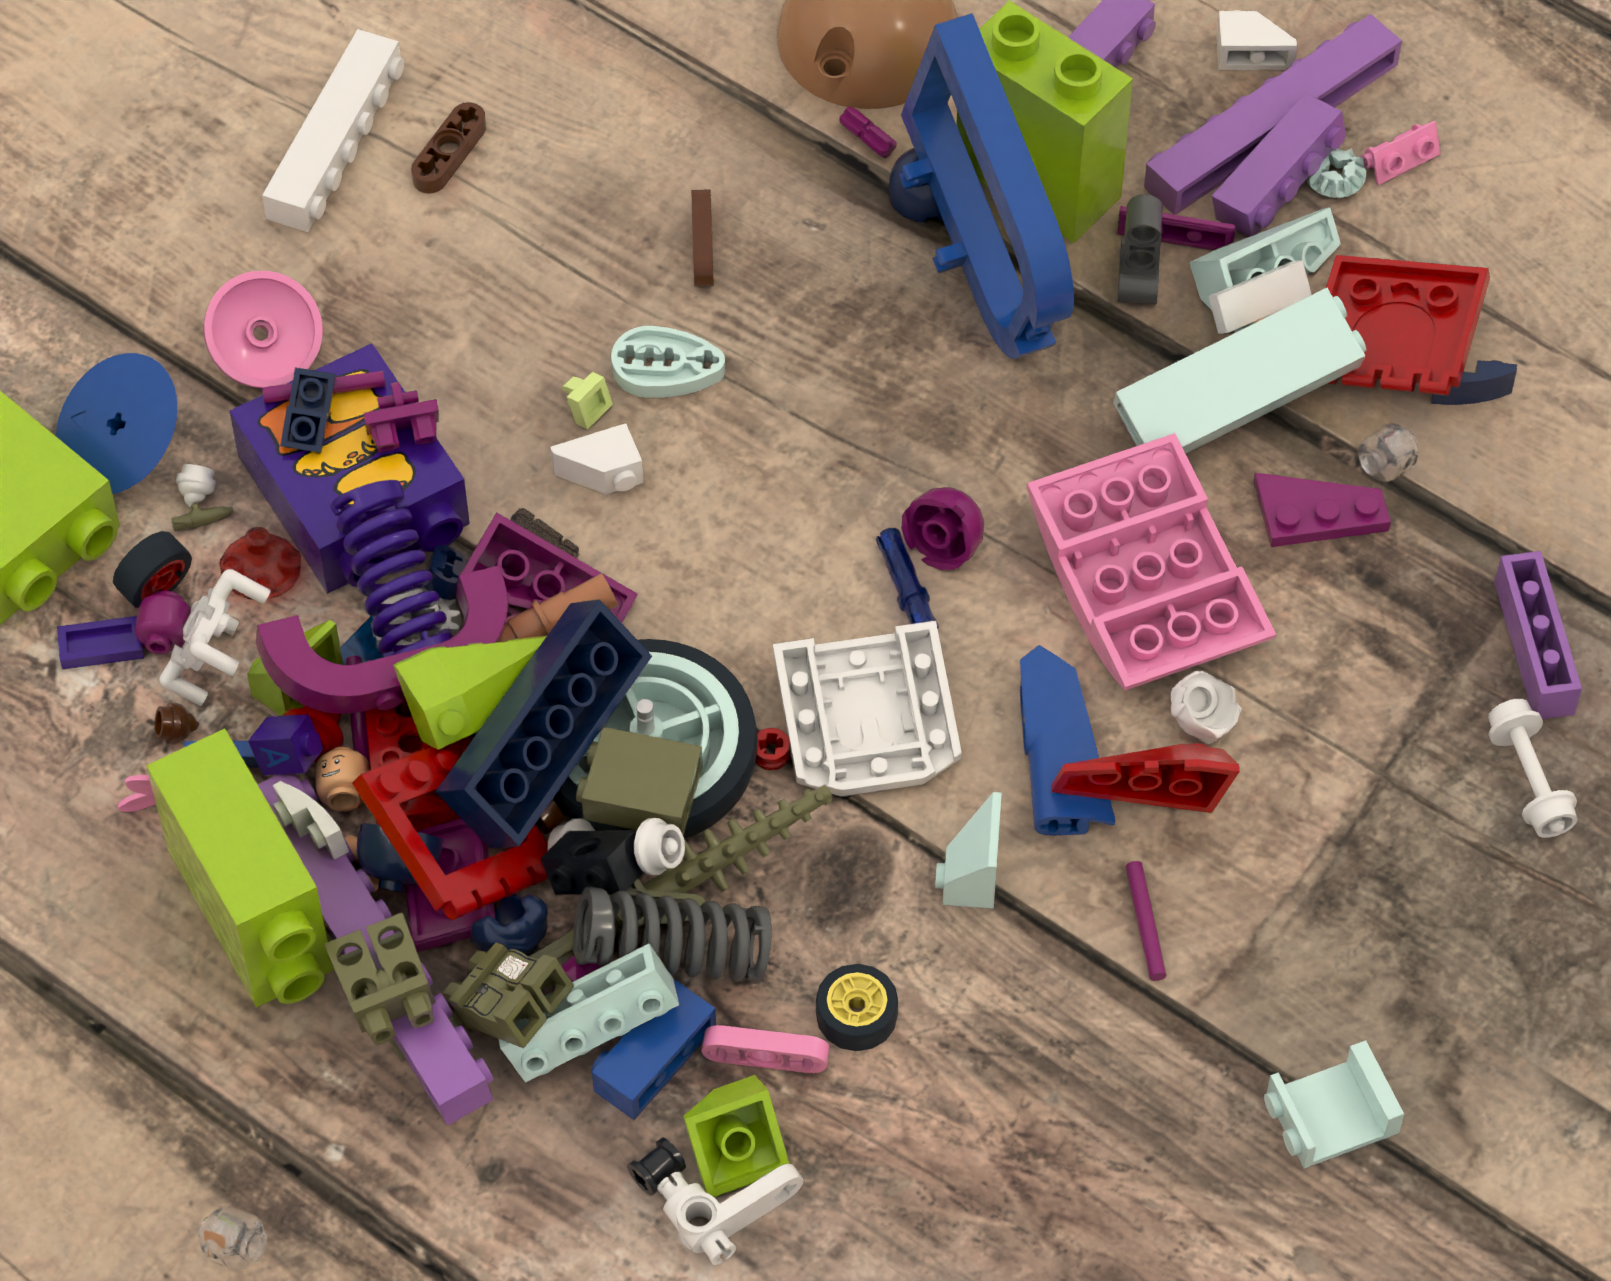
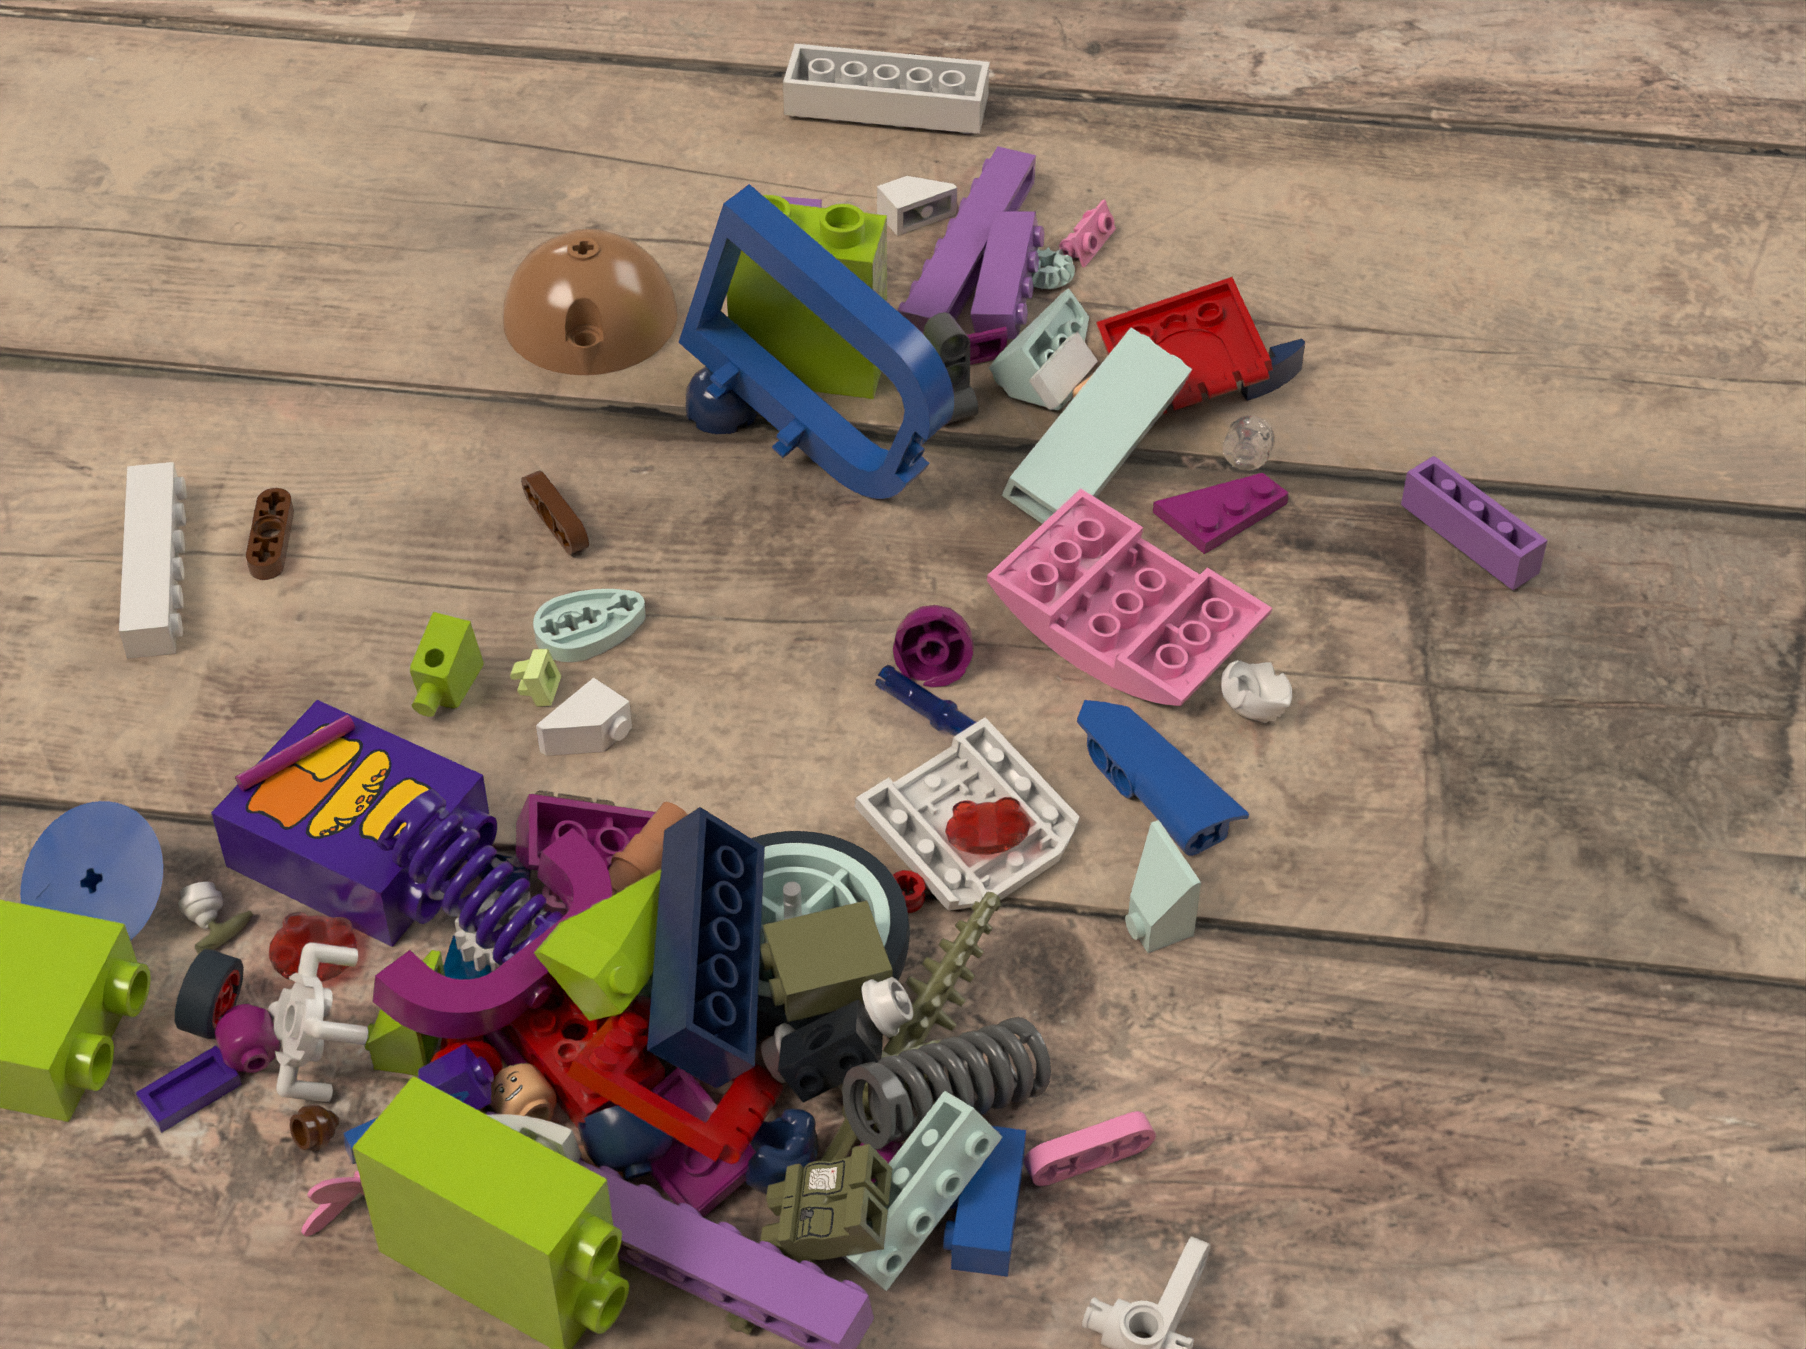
camera: 30 degrees left, 10 degrees down
(269, 303) = (192, 719): bright pink dish -> none
(308, 410) = (295, 775): dark blue slope -> none
(384, 993) = (704, 1249): olive hips -> none
(385, 422) = (391, 738): magenta hips -> none
(511, 352) = (444, 664): none -> lime torso
(656, 1166) = (1065, 1305): black bush -> none
(735, 1136) = (1124, 1235): lime slope -> none
(858, 987) = (1148, 1052): wheel -> none
(868, 132) = (648, 382): magenta piece -> none
(872, 724) = (987, 826): none -> clear red dish
(1146, 921) = (1332, 883): magenta bar -> none
(1167, 776) = (1267, 757): red wedge -> none
(1335, 1108) = (1607, 955): light aqua panel -> none
(1550, 811) = (1588, 648): white piece -> none

